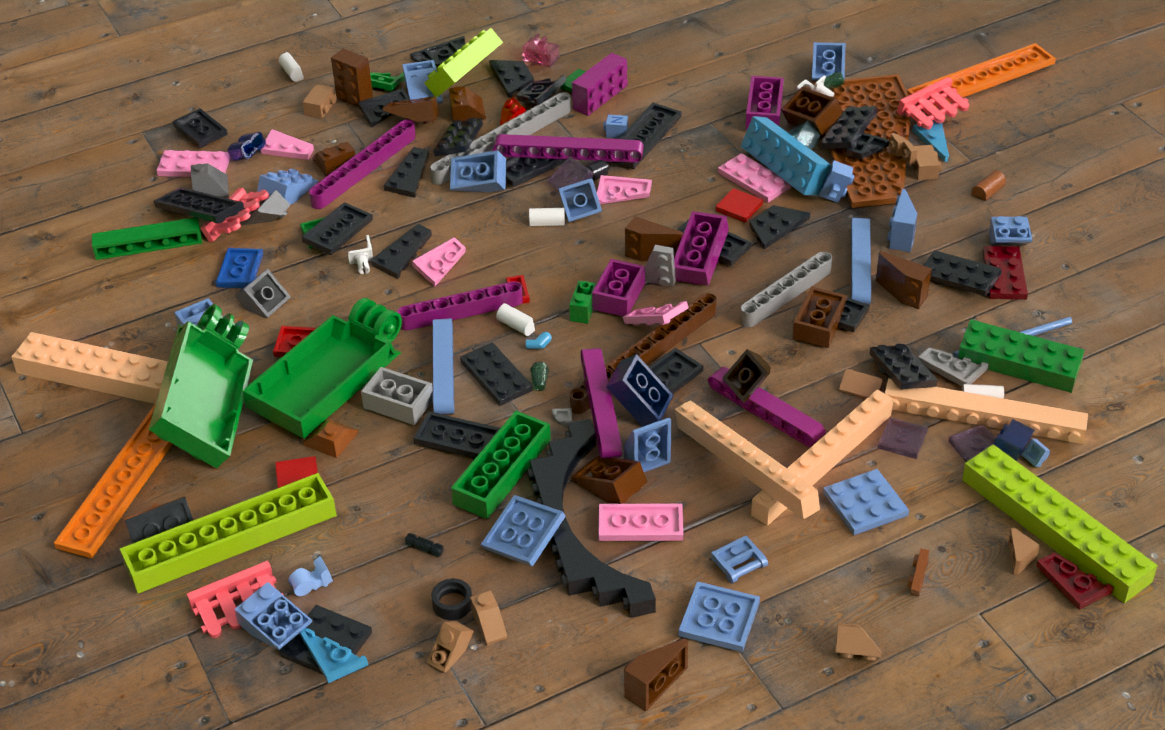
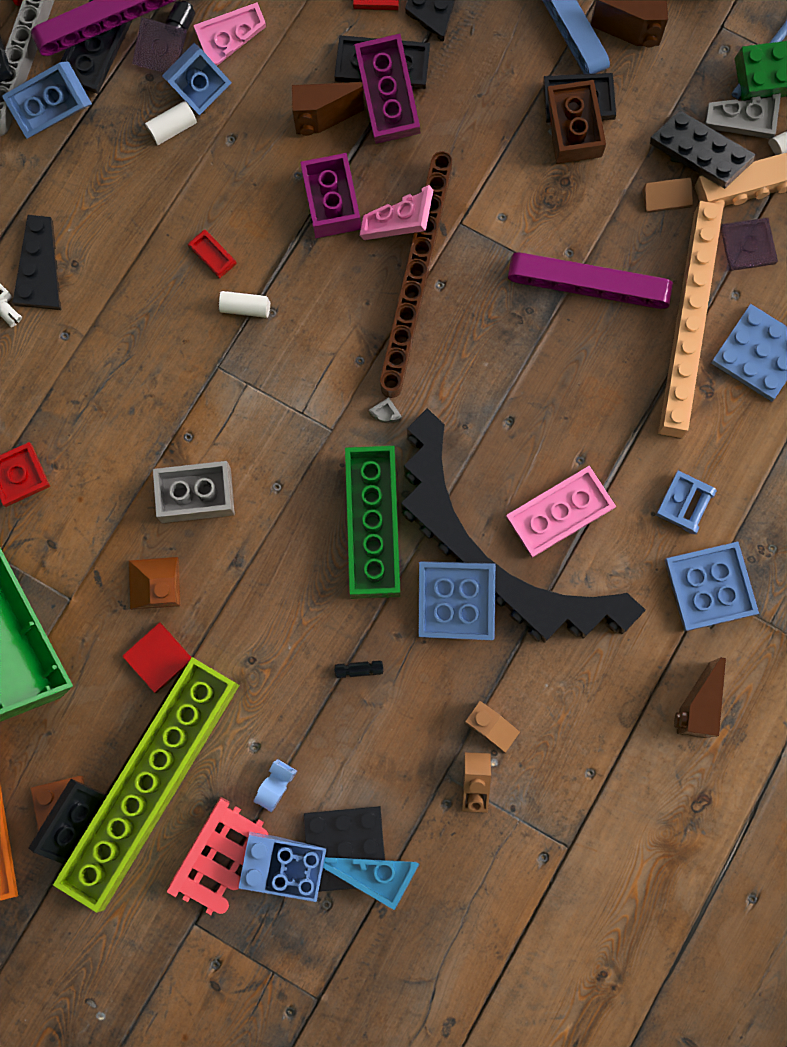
camera: 30 degrees left, 35 degrees up
(325, 368) = (89, 502): green plate -> none
(439, 261) = (94, 260): bright pink wing -> none
(443, 366) = (210, 416): medium blue beam -> none
(446, 587) = (456, 722): black tyre -> none
(454, 434) = (294, 505): black plate -> none
(460, 305) = (166, 330): magenta beam -> none
(496, 374) = (272, 391): black plate -> none
(539, 375) = (324, 370): clear green cone -> none
(540, 342) = (292, 319): dark azure arm -> none
(581, 302) = (303, 237): green slope -> none
(601, 403) = (427, 382): magenta beam -> none
(611, 478) = (493, 472): reddish brown slope -> none
(639, 391) = (460, 345): dark blue brick -> none
(650, 445) = (512, 414): medium blue slope -> none
(660, 266) = (363, 143): light grey wing -> none
(676, 369) = (461, 289): black plate -> none
(747, 374) = (562, 259): dark brown slope -> none
(748, 460) = (632, 380): light nougat brick -> none
(785, 289) = (509, 104): light grey beam -> none

